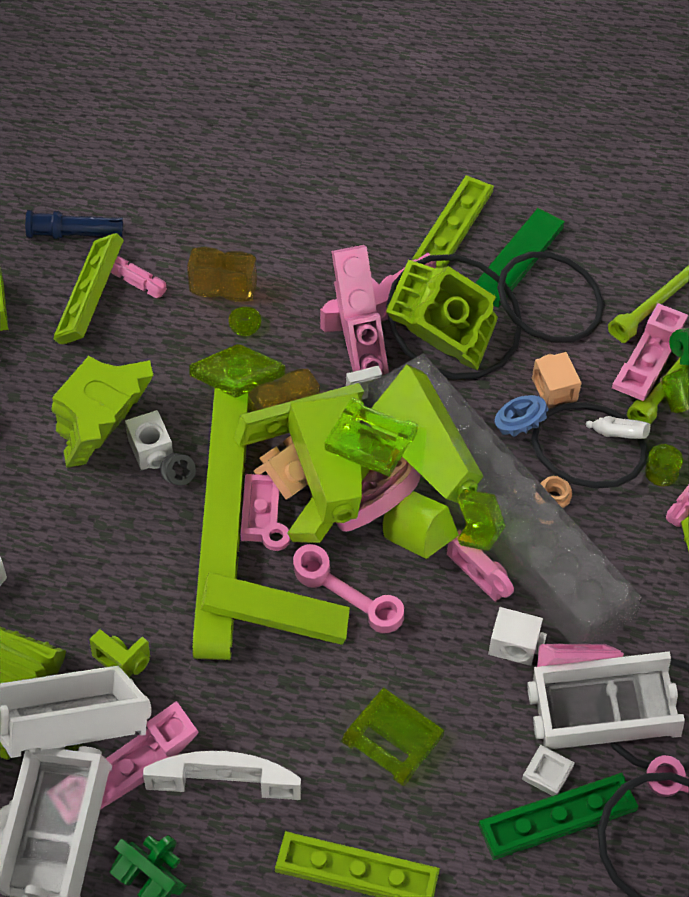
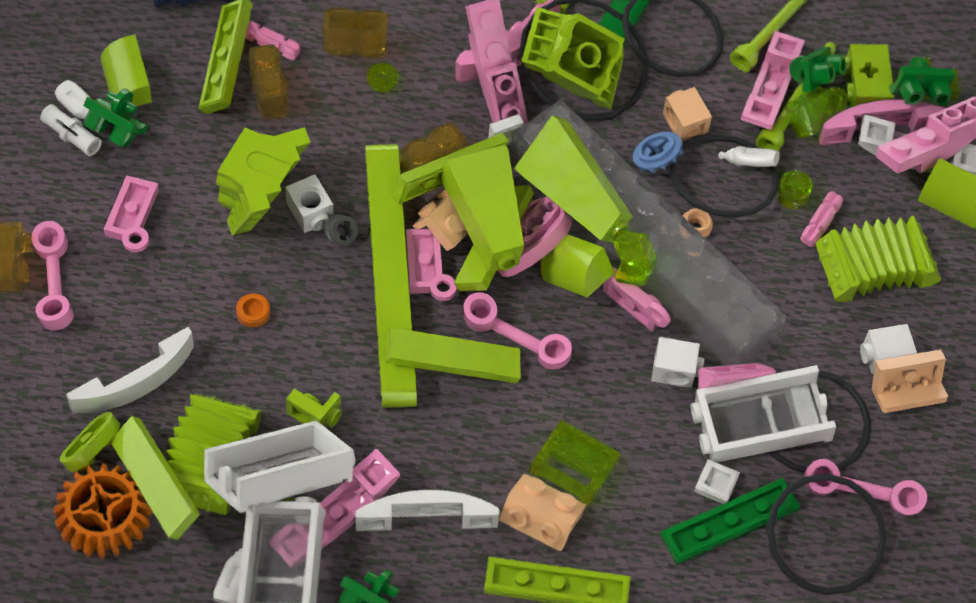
camera: 10 degrees left, 5 degrees up
(74, 544) = (253, 310): none -> orange tile
(127, 316) = (268, 81): none -> clear yellow brick
(237, 370) = (384, 128): clear neon green plate -> none
(350, 786) = (541, 511): none -> light nougat bracket
(367, 445) = (523, 195): clear neon green plate -> none

